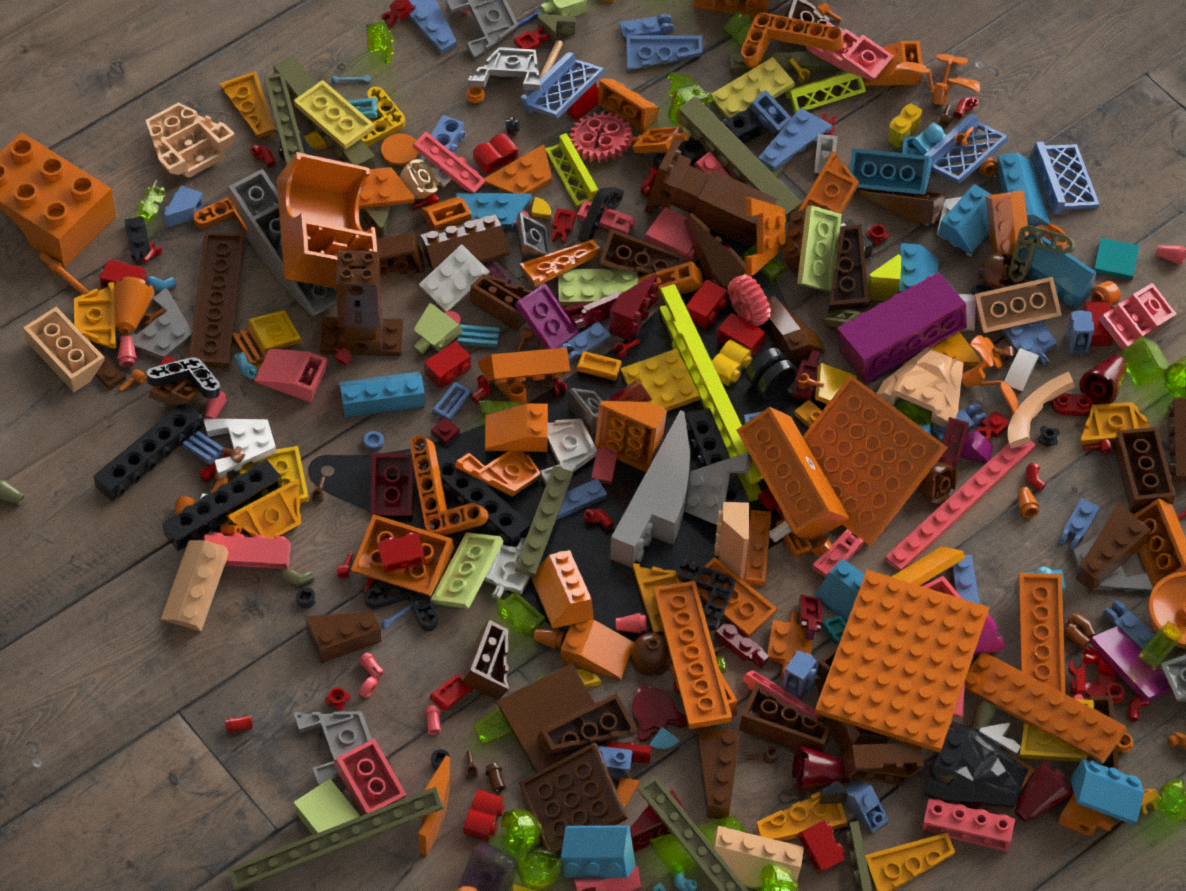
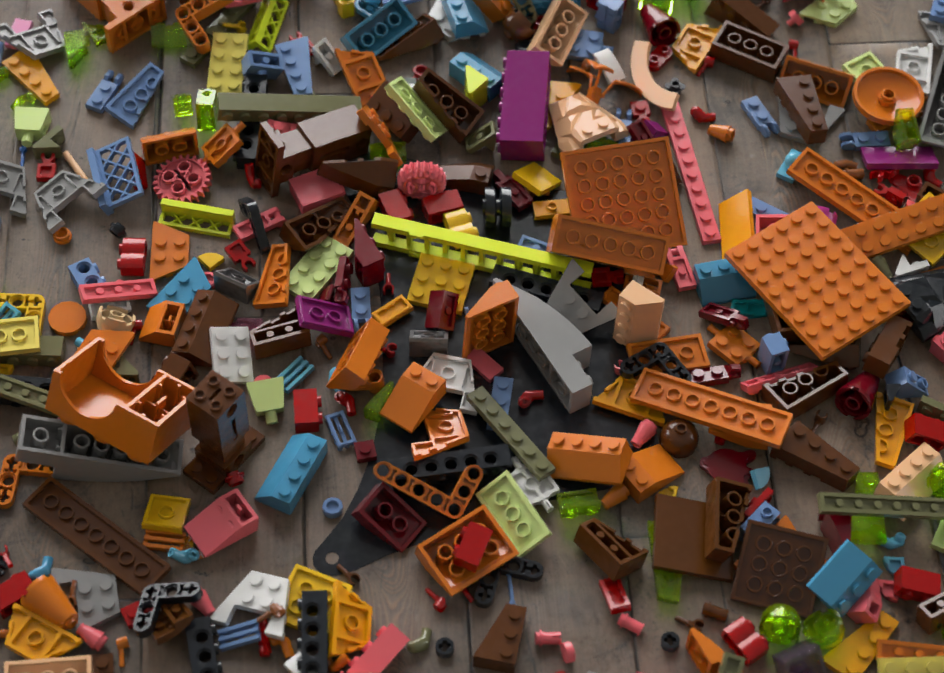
camera: 55 degrees left, 0 degrees up
(806, 382) = (520, 190): orange hand -> none

